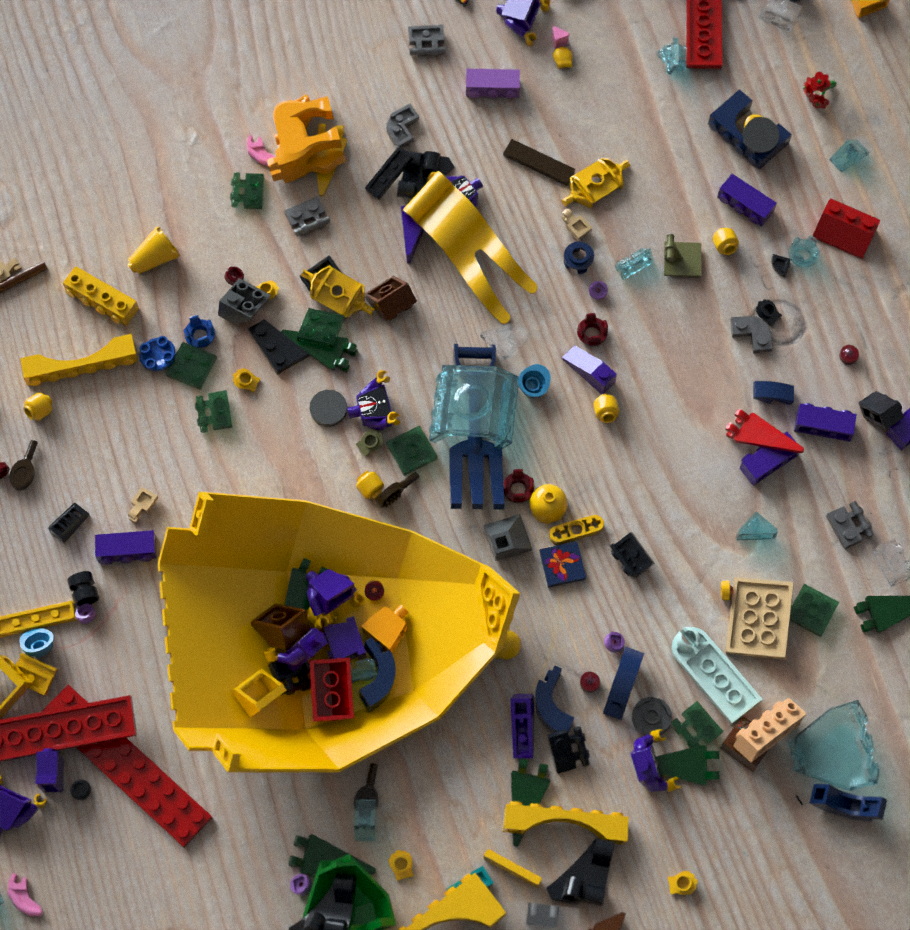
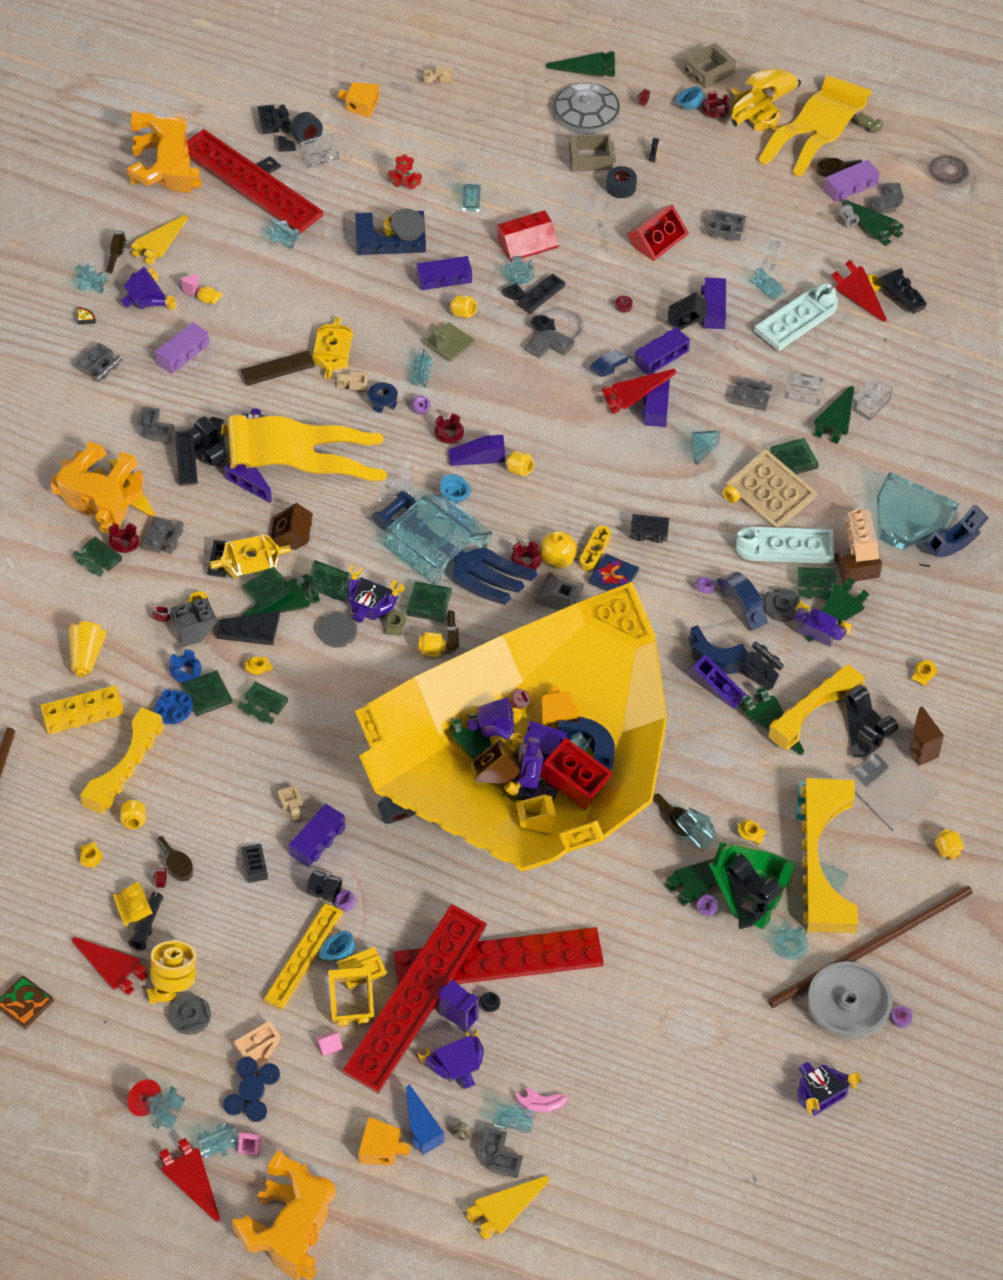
camera: 50 degrees left, 15 degrees down
(257, 151) = (71, 528): bright pink piece -> none
(277, 186) = (129, 534): none -> dark red piece
(361, 364) = (328, 580): none -> clear green plate
(512, 868) = (819, 763): yellow tile -> none
(589, 682) = (720, 622): dark red tile -> none
(799, 285) = (541, 293): none -> black tile

